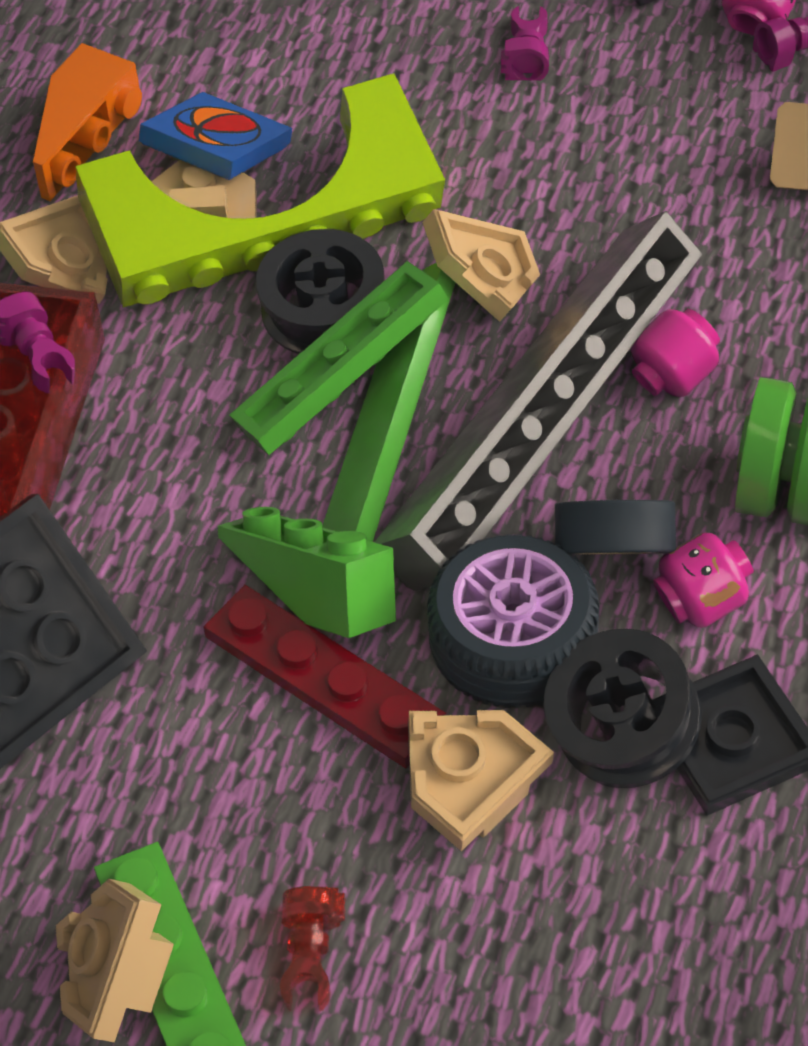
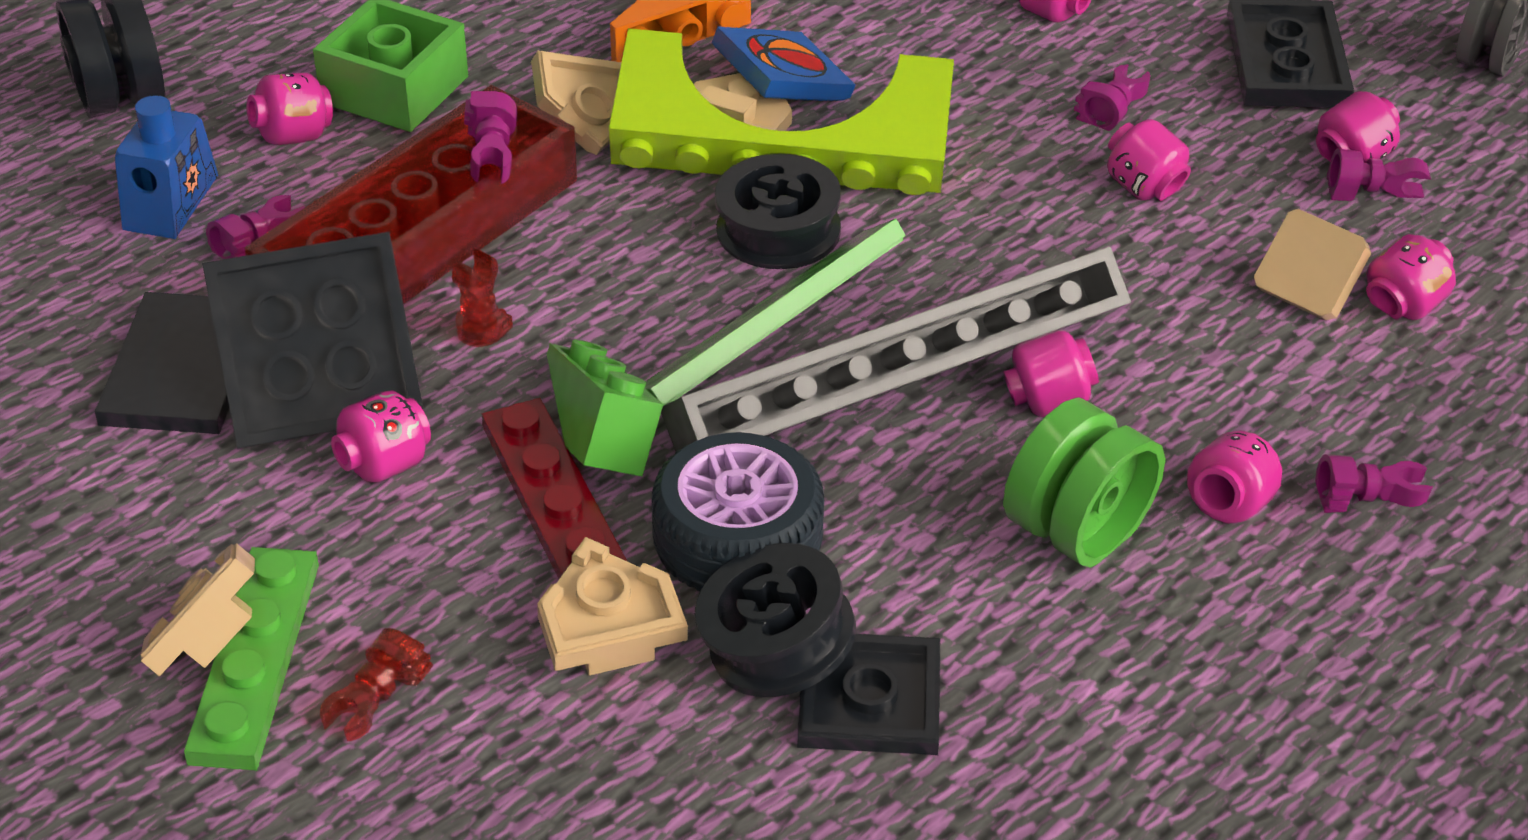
camera: 25 degrees right, 10 degrees down
(126, 527) = (479, 319): none -> clear red piece
(134, 694) = (381, 436): none -> dark pink head
(339, 357) = (765, 252): bright green plate -> none
(483, 259) = (933, 236): tan plate -> none
(607, 100) = (1148, 160): none -> dark pink head
(615, 526) = (877, 475): black wheel -> none
(703, 579) = (933, 556): dark pink head -> none

